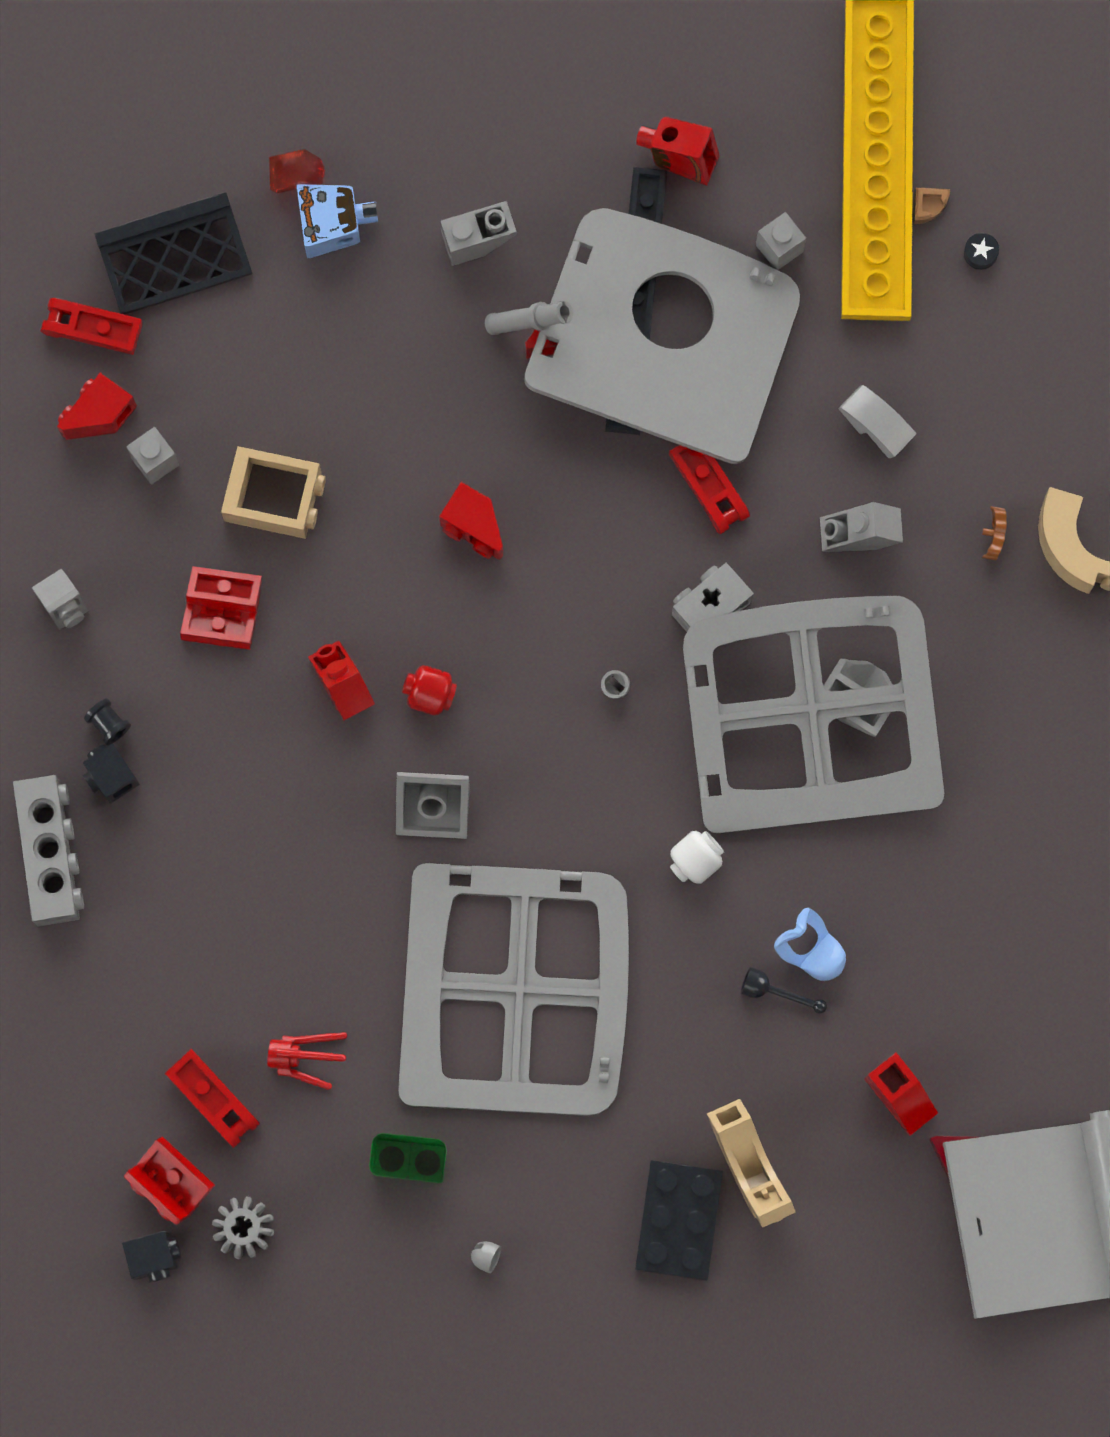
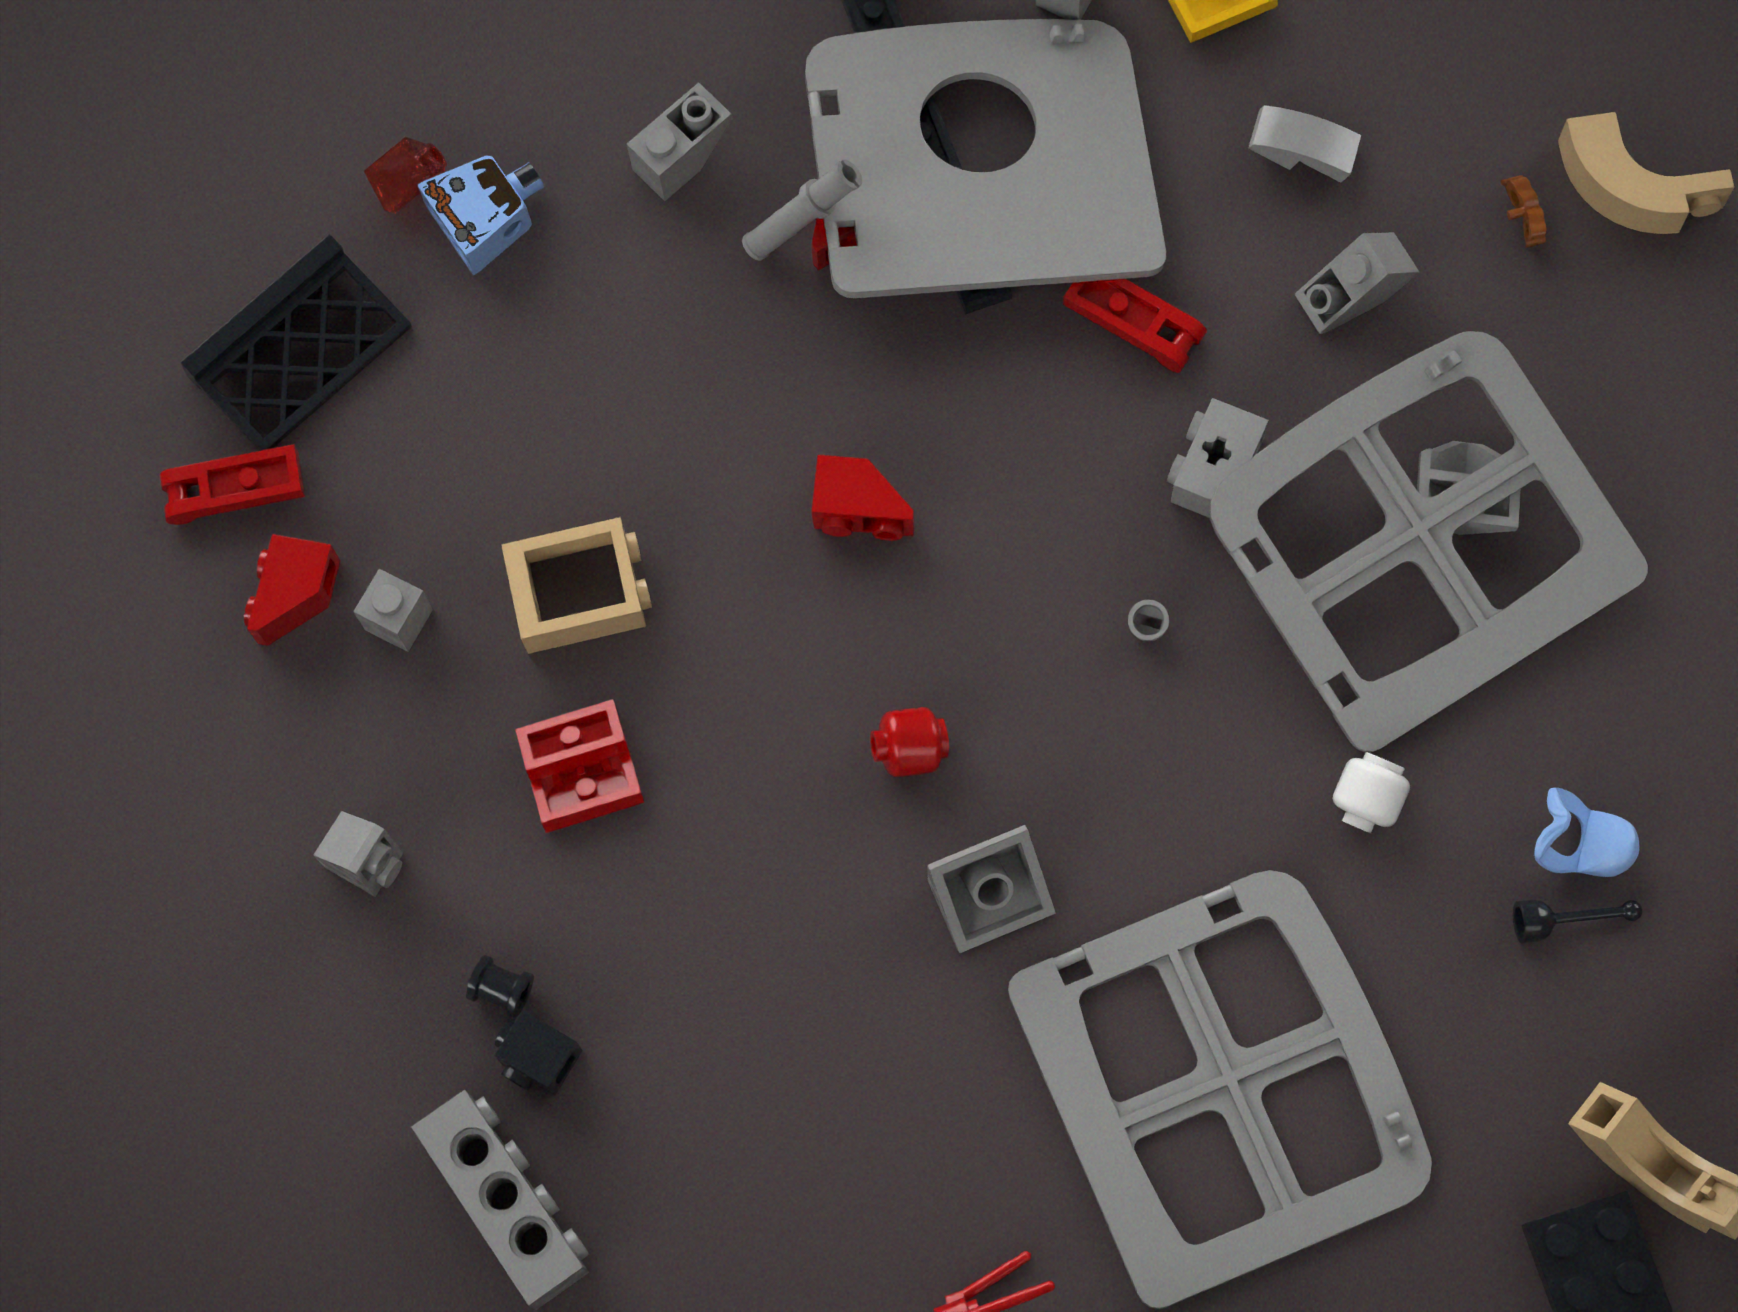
camera: 20 degrees left, 5 degrees down
(341, 680) = (787, 783): red slope -> none

